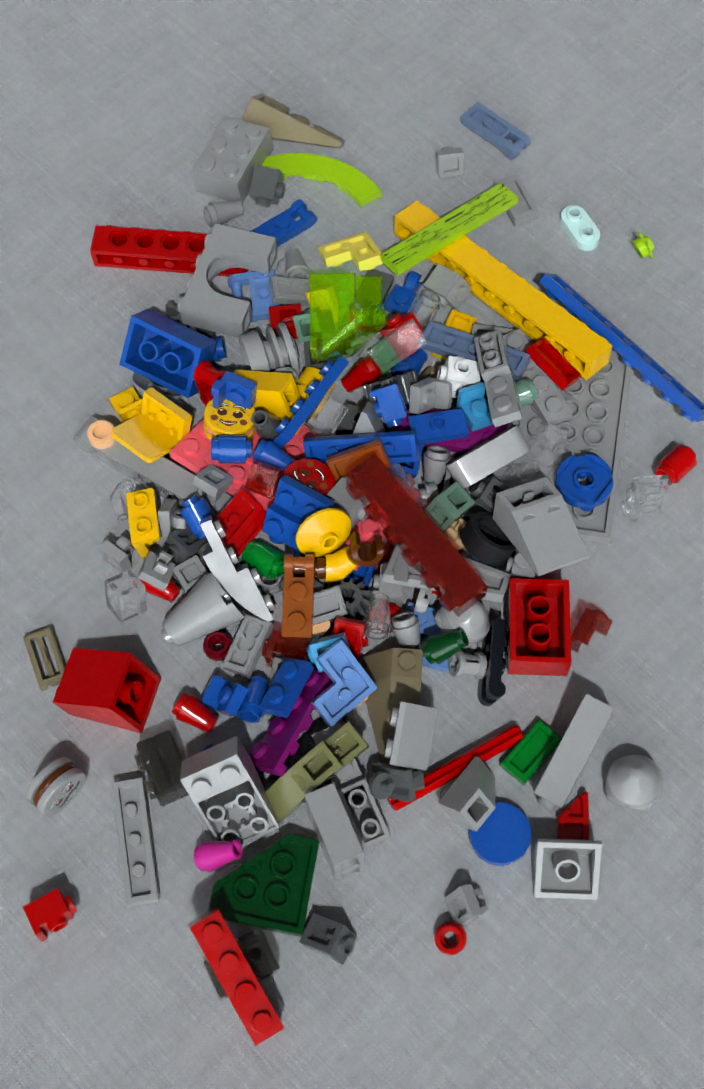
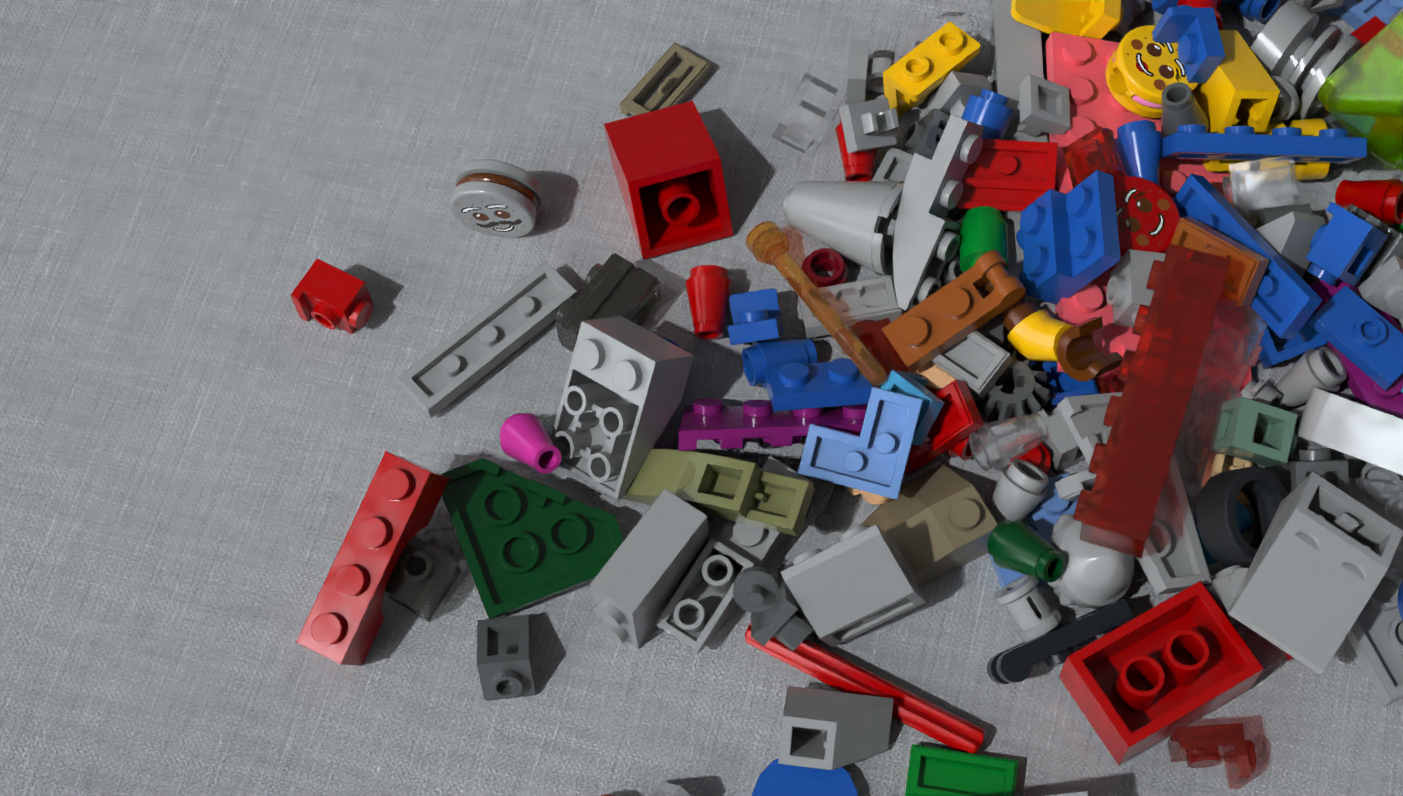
camera: 60 degrees right, 0 degrees up
(184, 663) = (771, 247): none -> clear orange piece
(230, 448) = (1107, 94): blue brick -> none
(323, 532) = (1066, 278): yellow dish -> none

